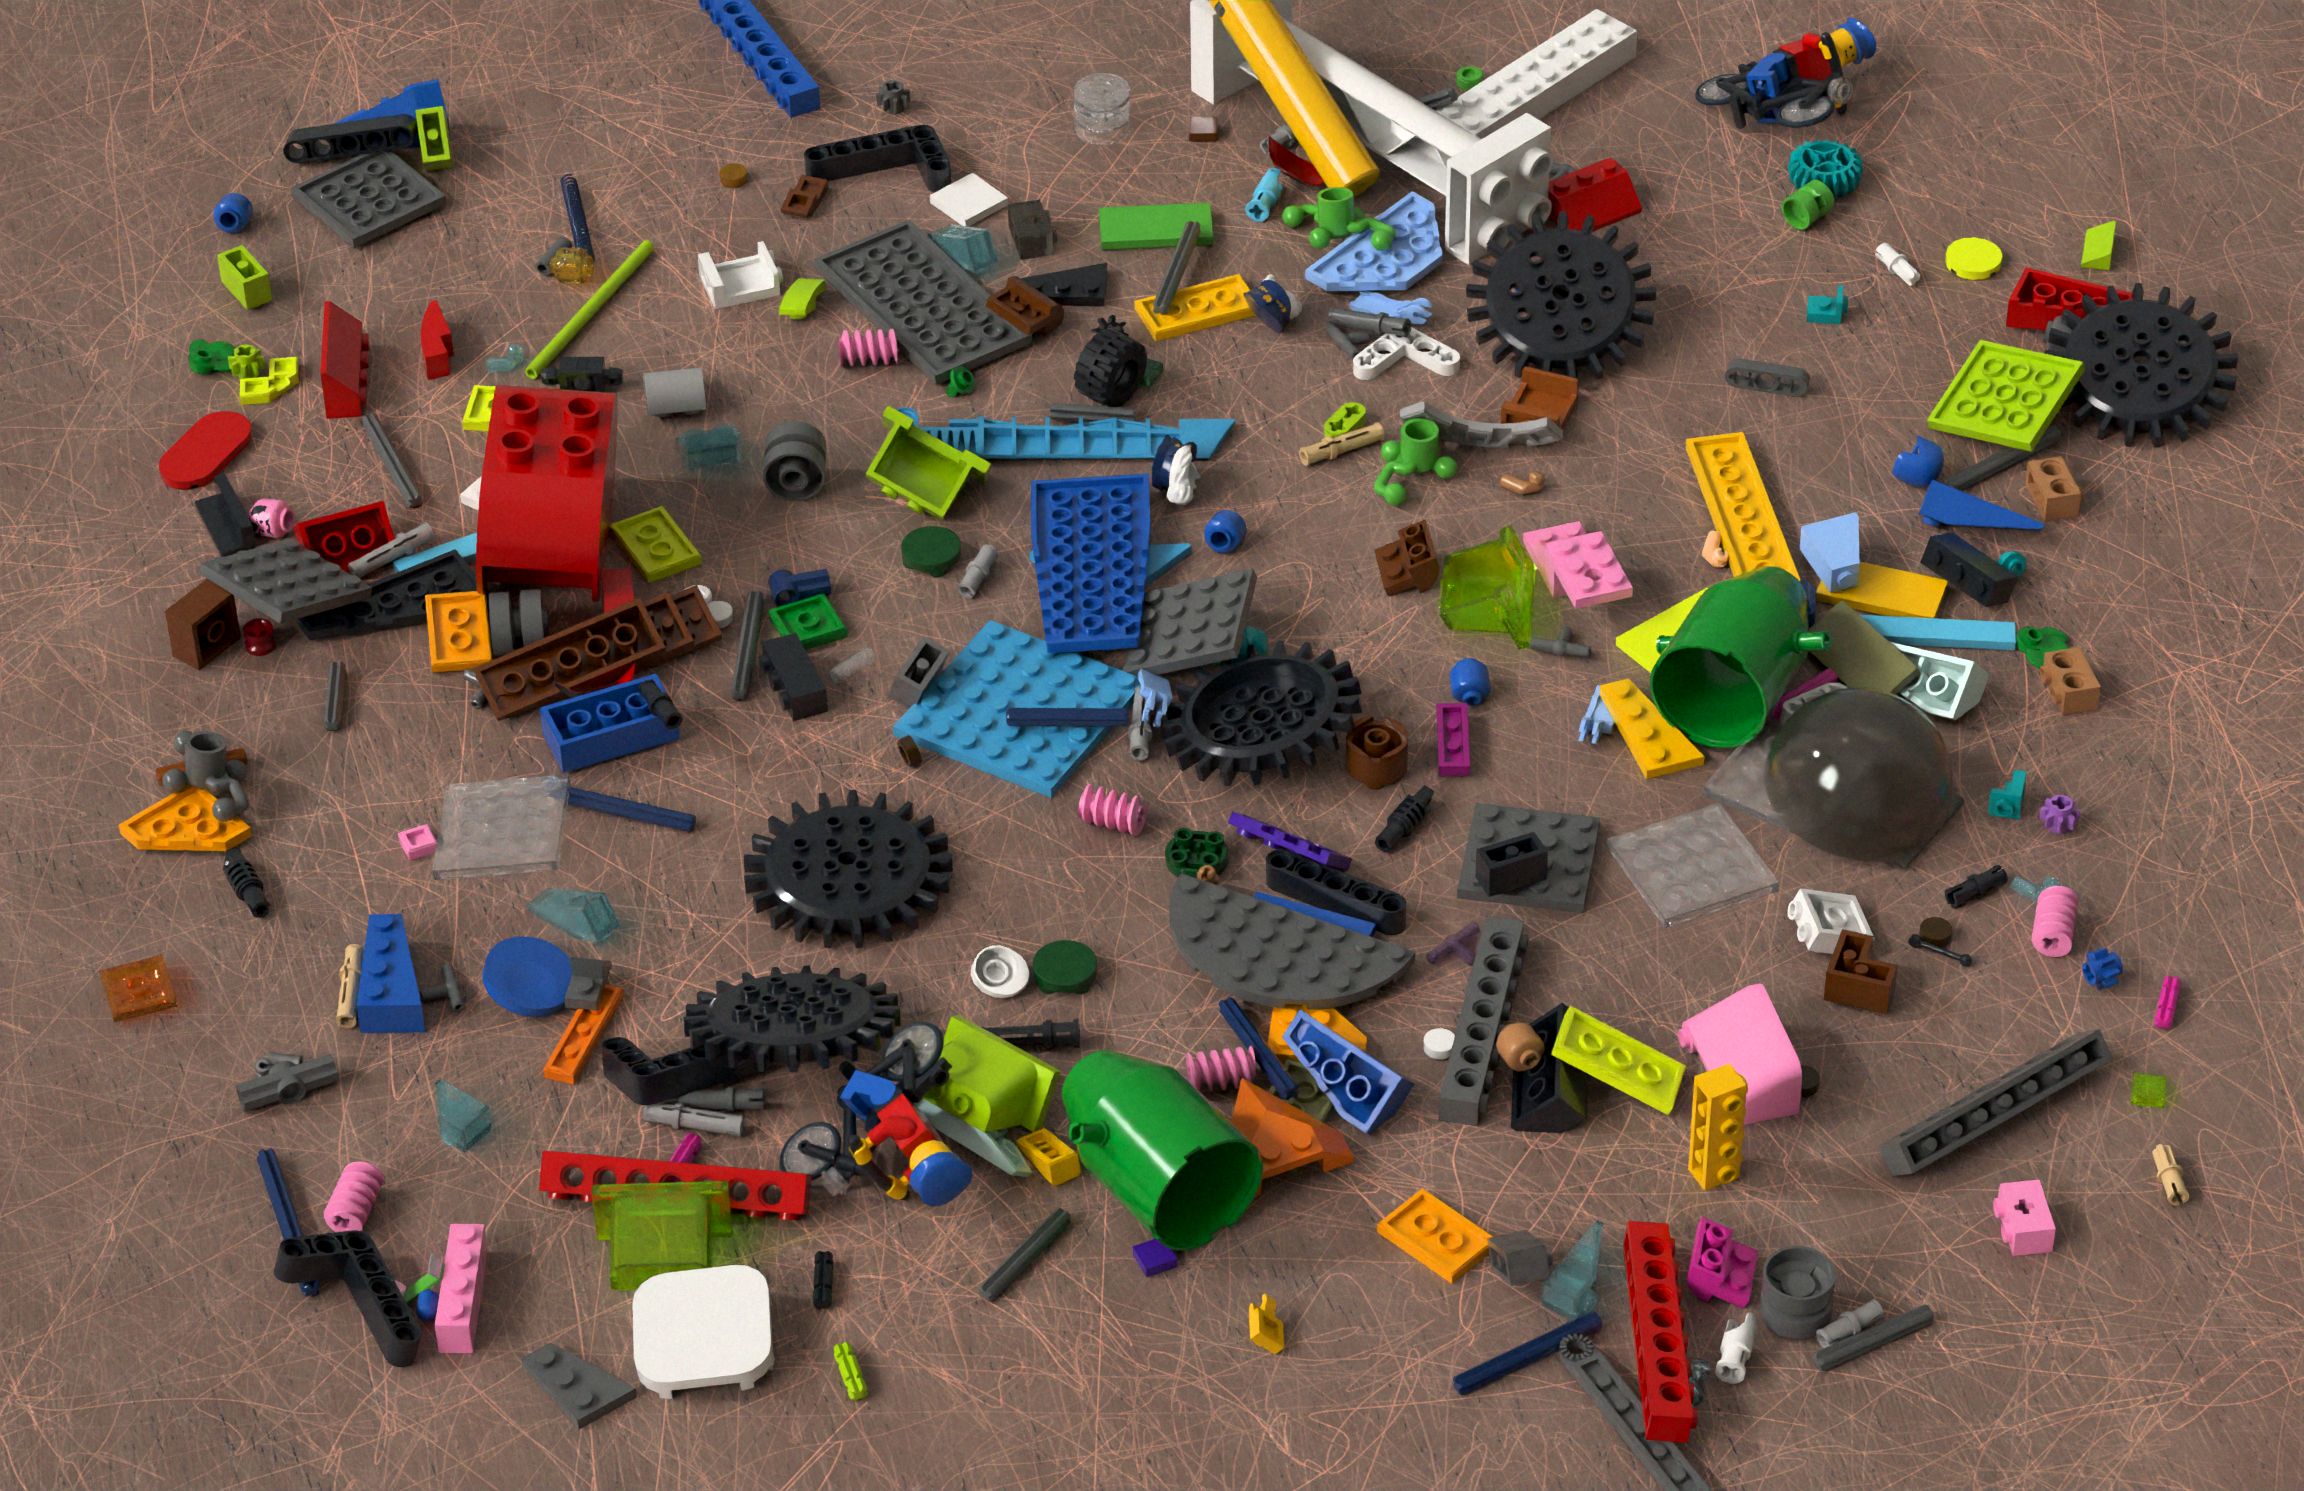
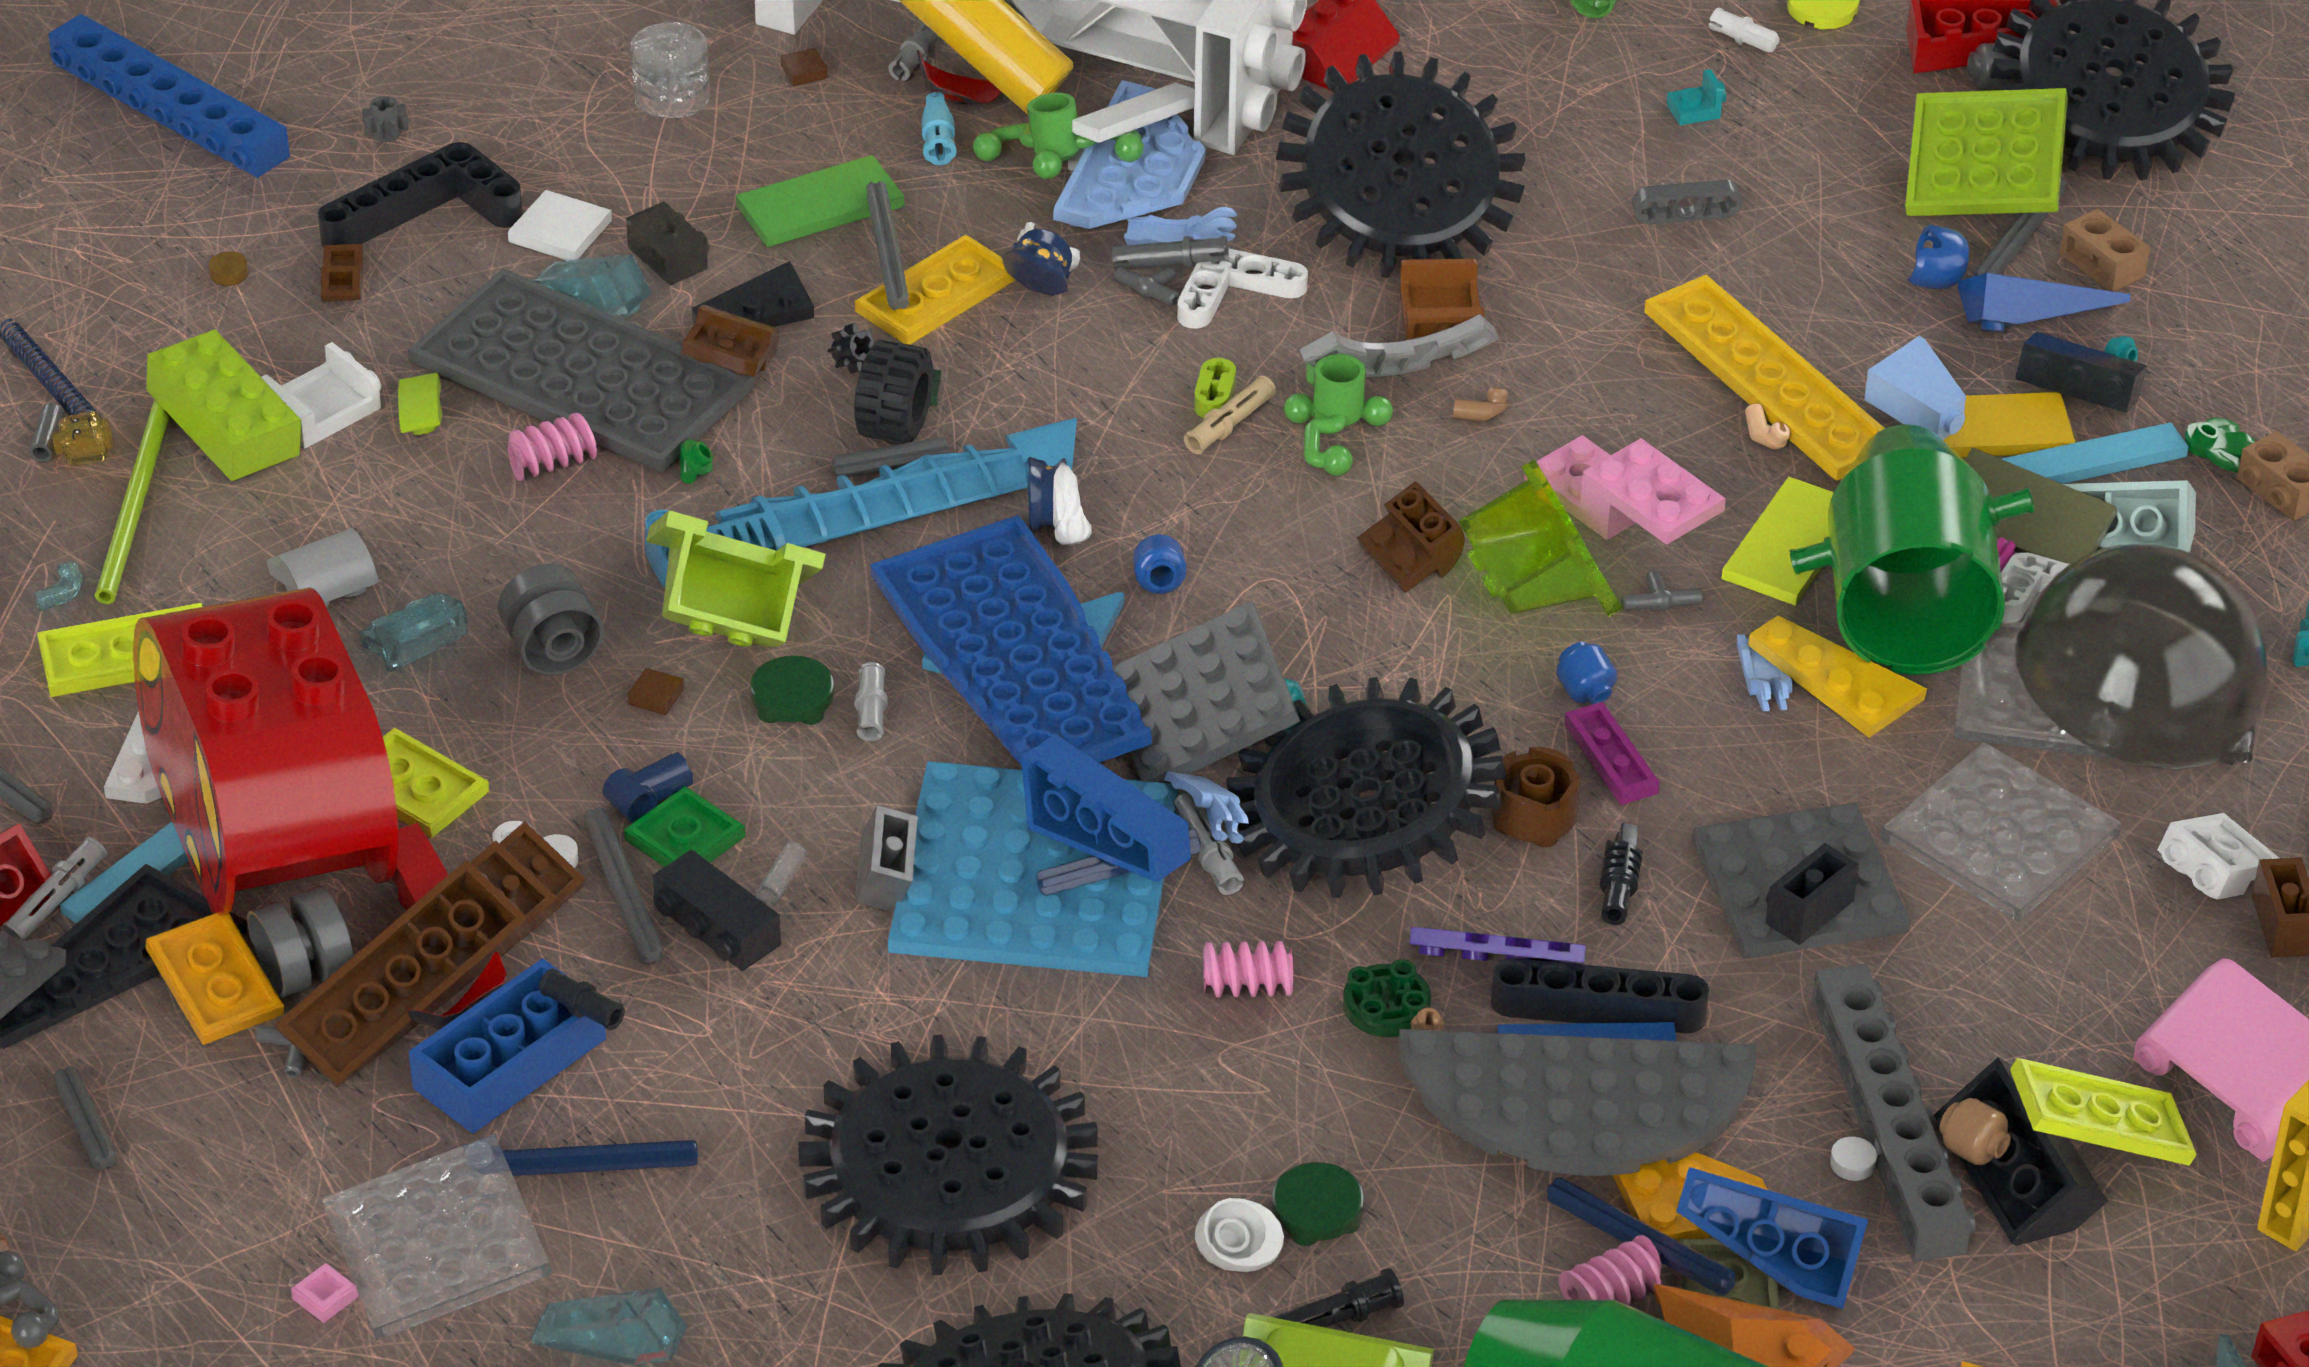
camera: 25 degrees left, 0 degrees up
(590, 368) = (184, 580): black piece -> none
(670, 265) = (223, 405): none -> lime brick
(843, 527) = (655, 691): none -> reddish brown tile
(909, 751) = (932, 967): dark brown tile -> none
(1062, 678) = (1100, 812): none -> blue wedge
(1396, 216) = (1135, 113): none -> white tile
(1455, 944) = (1785, 1020): clear purple piece -> none

